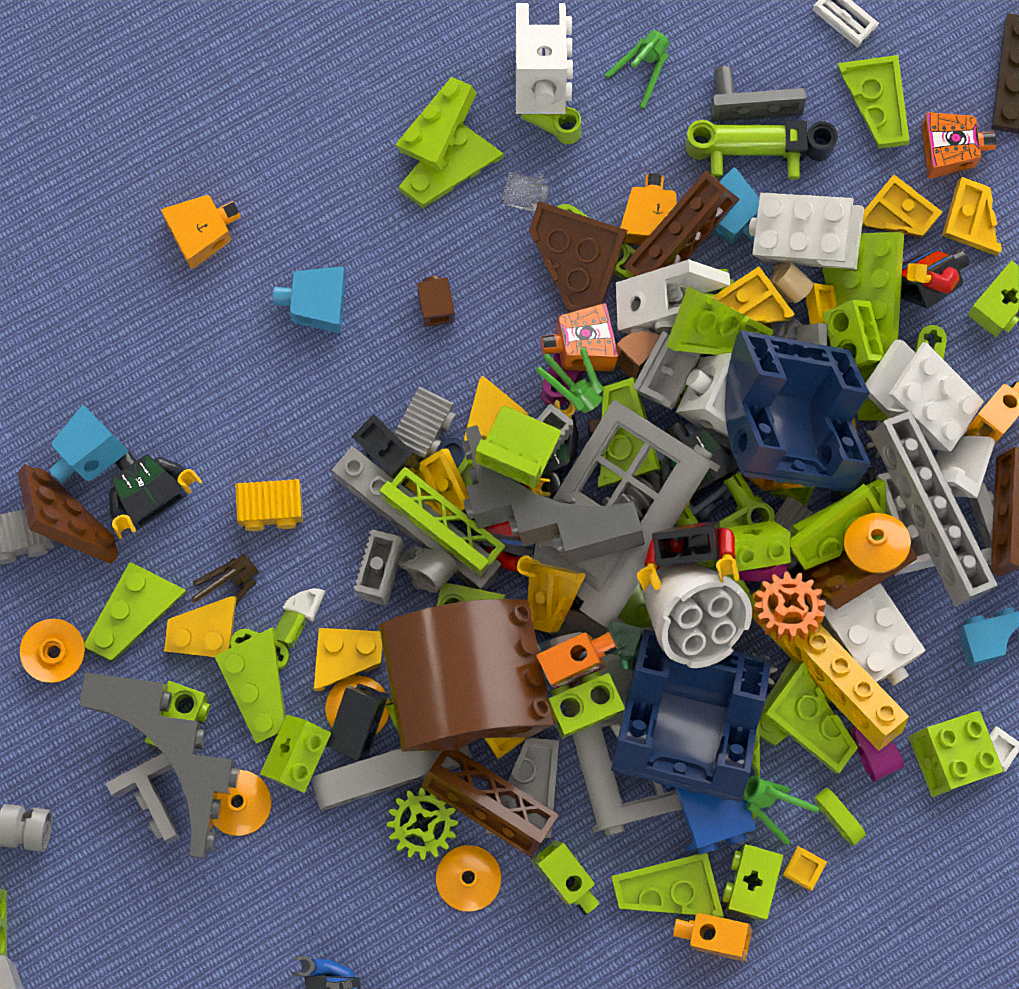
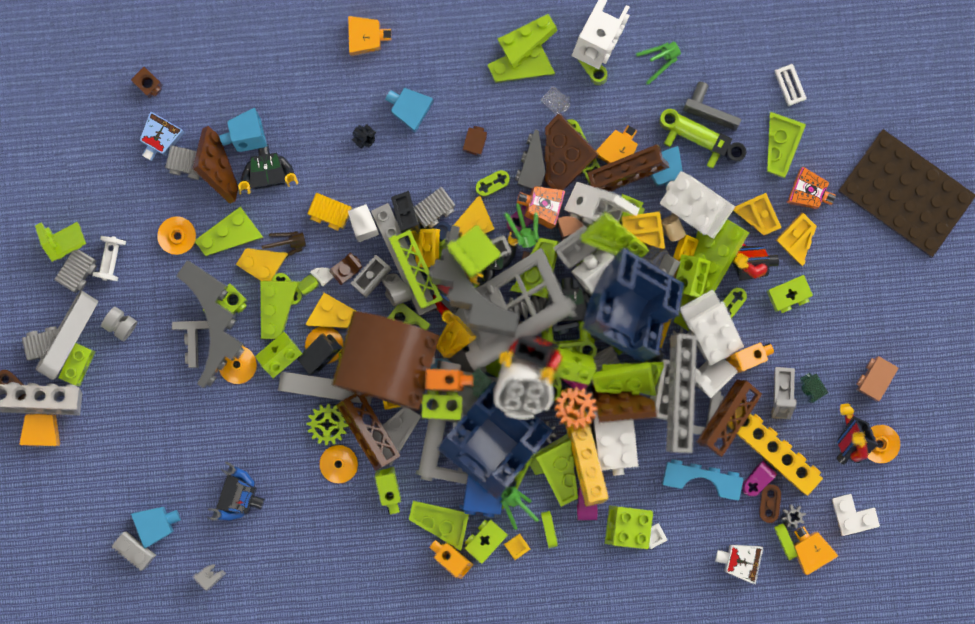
camera: 30 degrees right, 10 degrees up
(267, 370) = (363, 136): none -> black gear
(329, 494) = (362, 223): none -> white piece
(336, 575) = (346, 268): none -> reddish brown bracket
(486, 345) = (490, 179): none -> lime beam
(540, 295) = (533, 168): none -> dark grey slope
(872, 554) = (639, 406): light orange dish -> none

